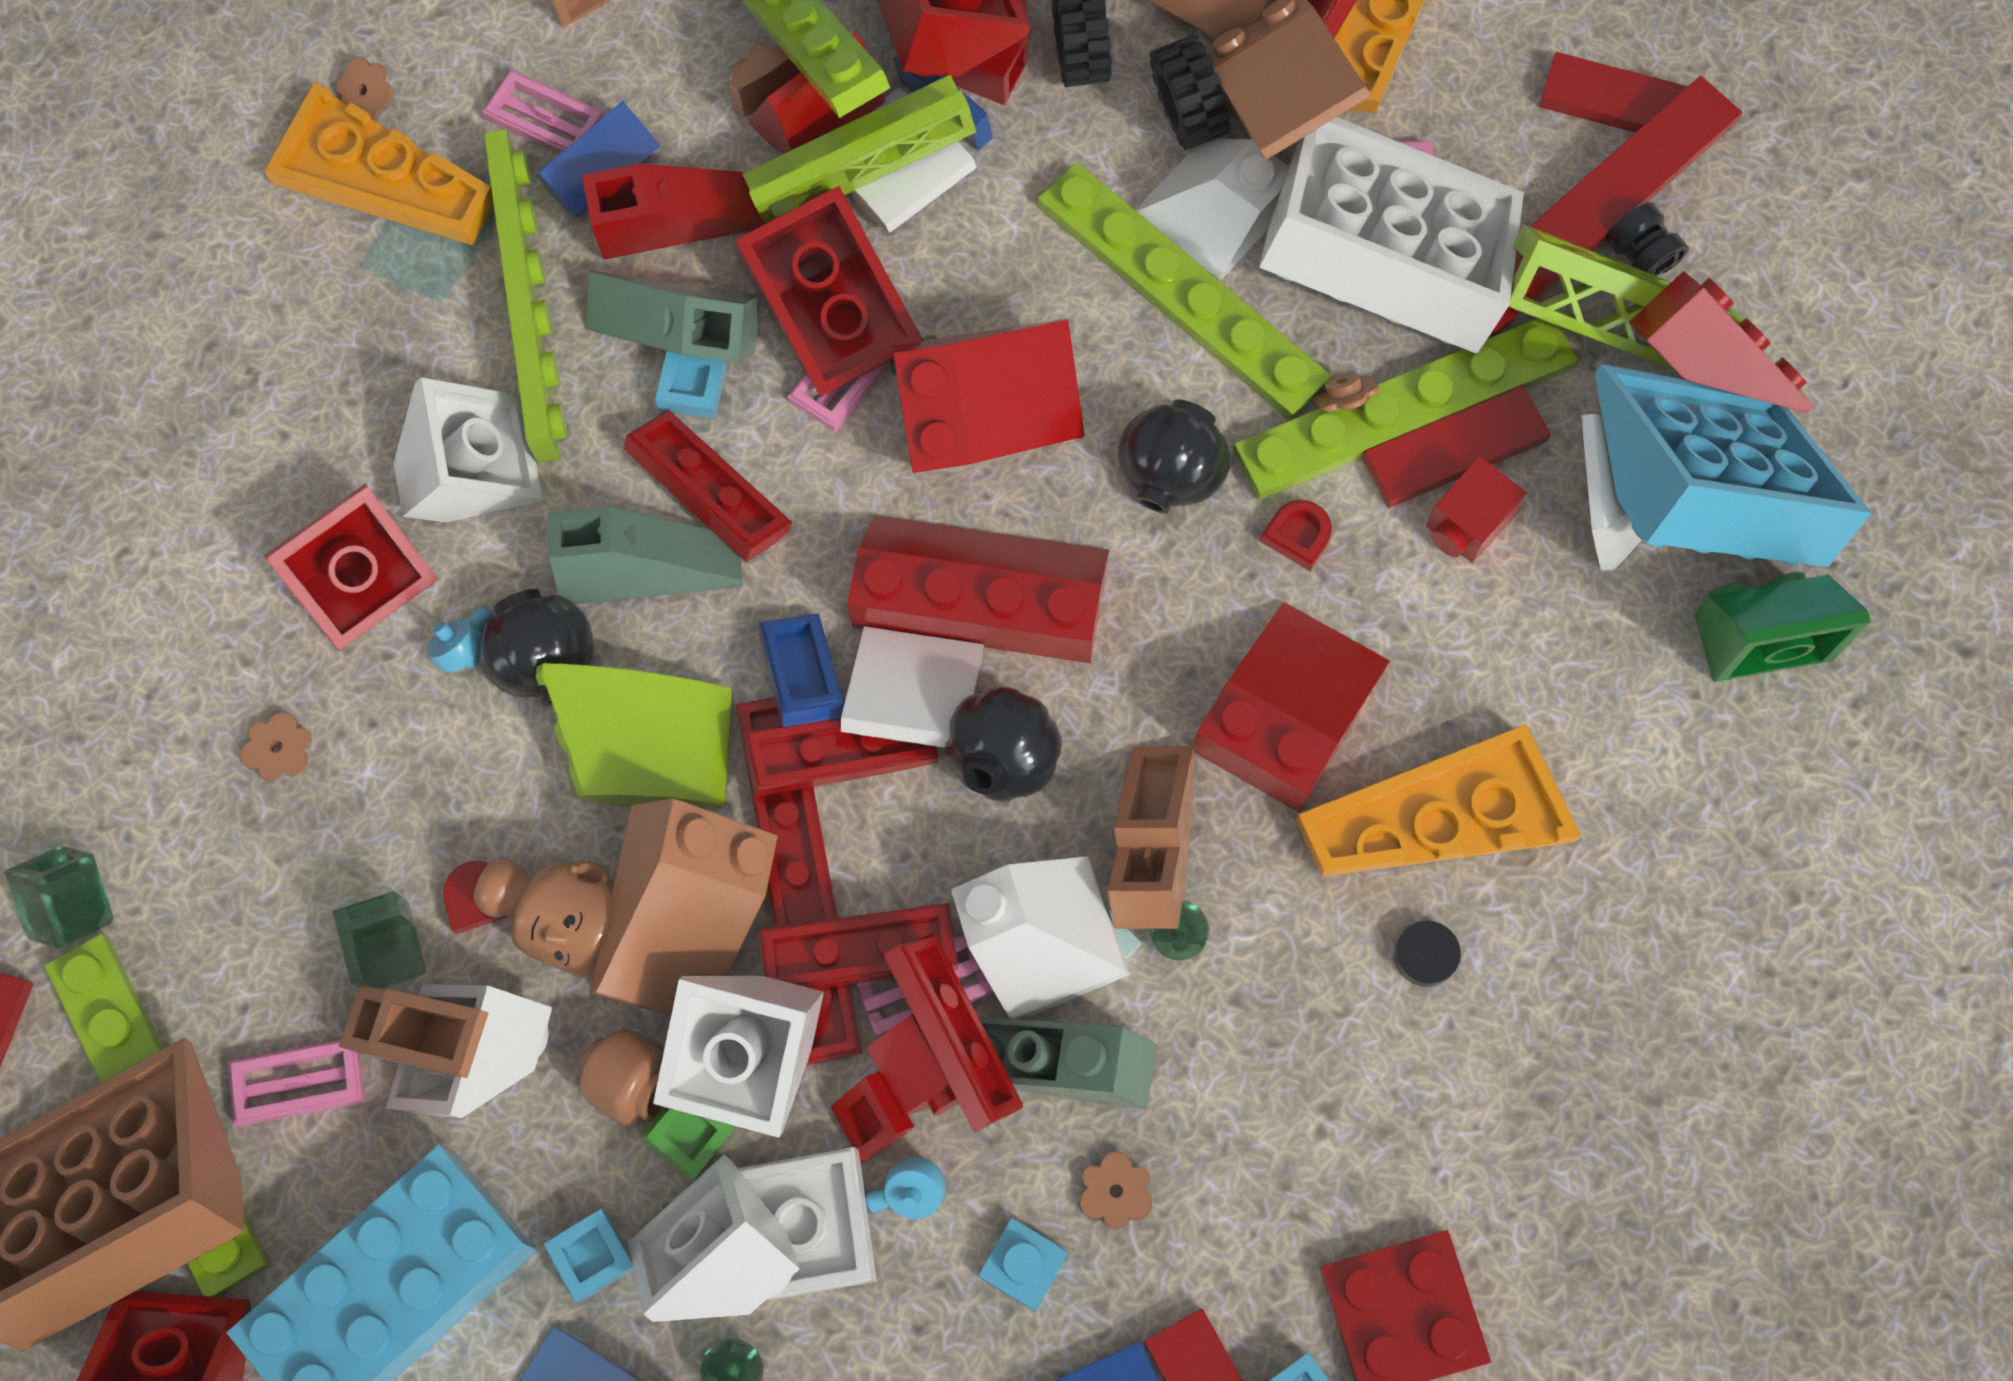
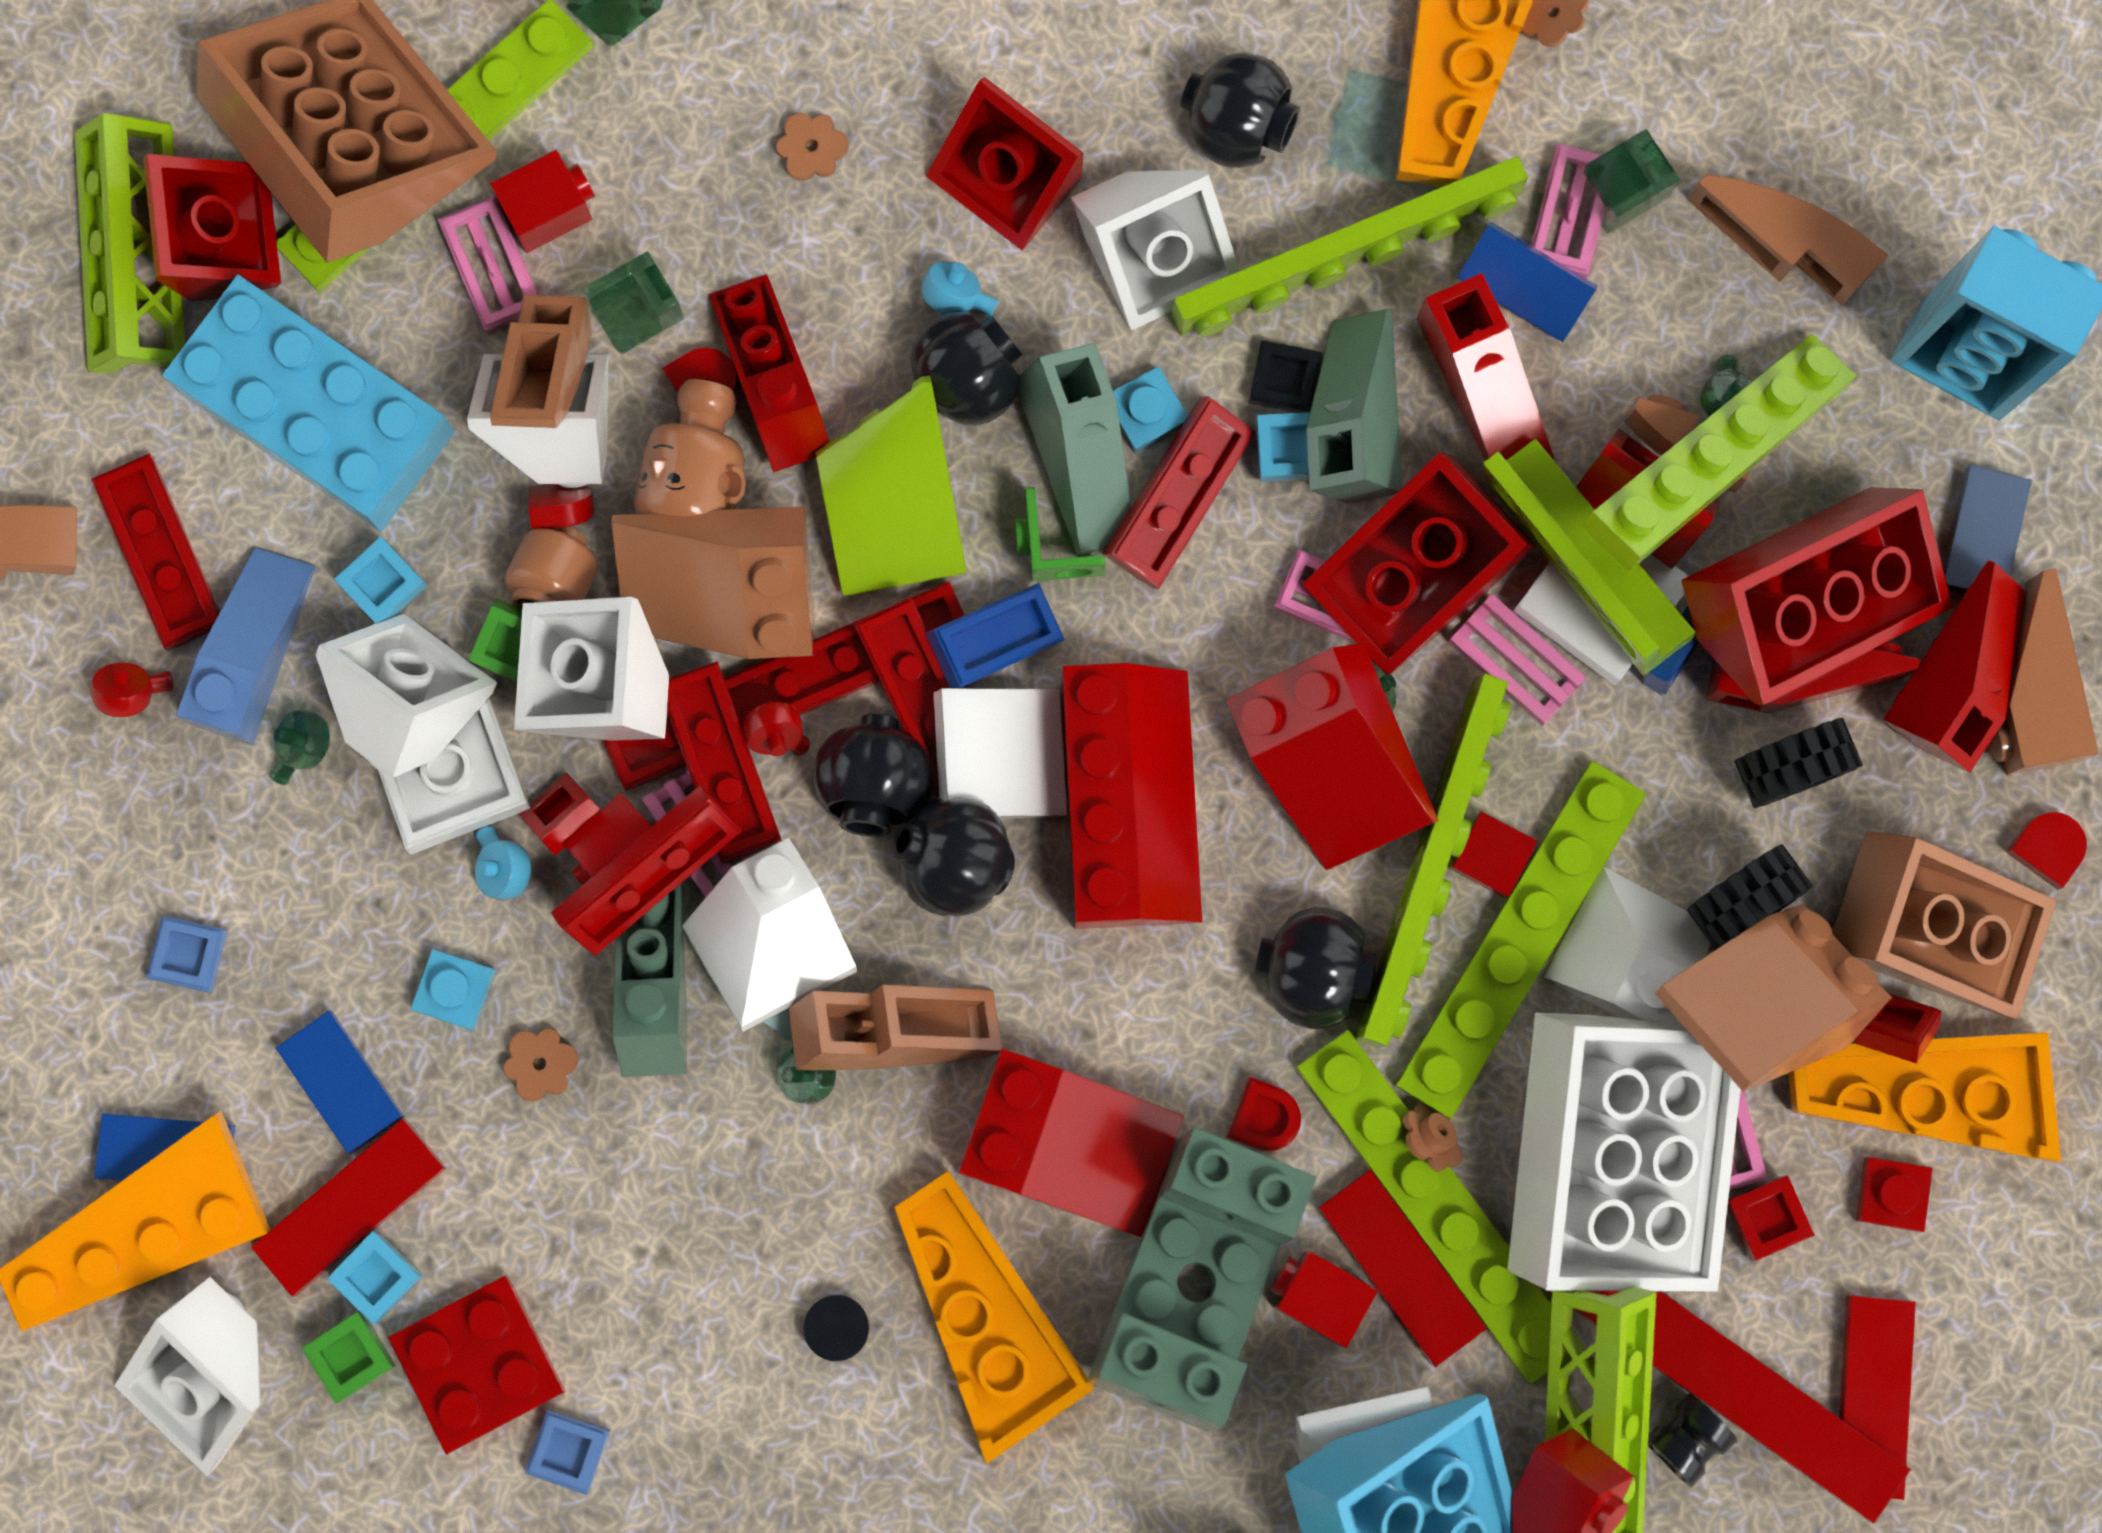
camera: 70 degrees right, 10 degrees up
(248, 1010) = (544, 200): none -> red brick
(366, 358) = (1240, 109): none -> black plant
(505, 819) = (770, 372): none -> red slope
(531, 53) = (1631, 179): none -> clear green panel
(562, 1058) = (559, 506): none -> red tile
(623, 489) = (1148, 409): none -> medium azure plate
(625, 377) = (1285, 377): none -> black tile
(718, 620) = (1054, 569): none -> bright green bracket
(739, 28) = (1722, 385): none -> clear green piece
(839, 889) = (775, 729): none -> red piece
(903, 806) = (872, 776): none -> black plant
(945, 258) = (1534, 642): none -> bright pink tile
(1099, 342) = (1425, 889): none -> lime plate
(1102, 296) = (1494, 855): none -> red tile
(1382, 580) = (1212, 1211): none -> sand green plate
(1460, 51) = (1894, 1194): none -> red plate
(1467, 142) = (1769, 1218): none -> red plate
(1506, 1240) = (567, 1452): none -> medium blue tile

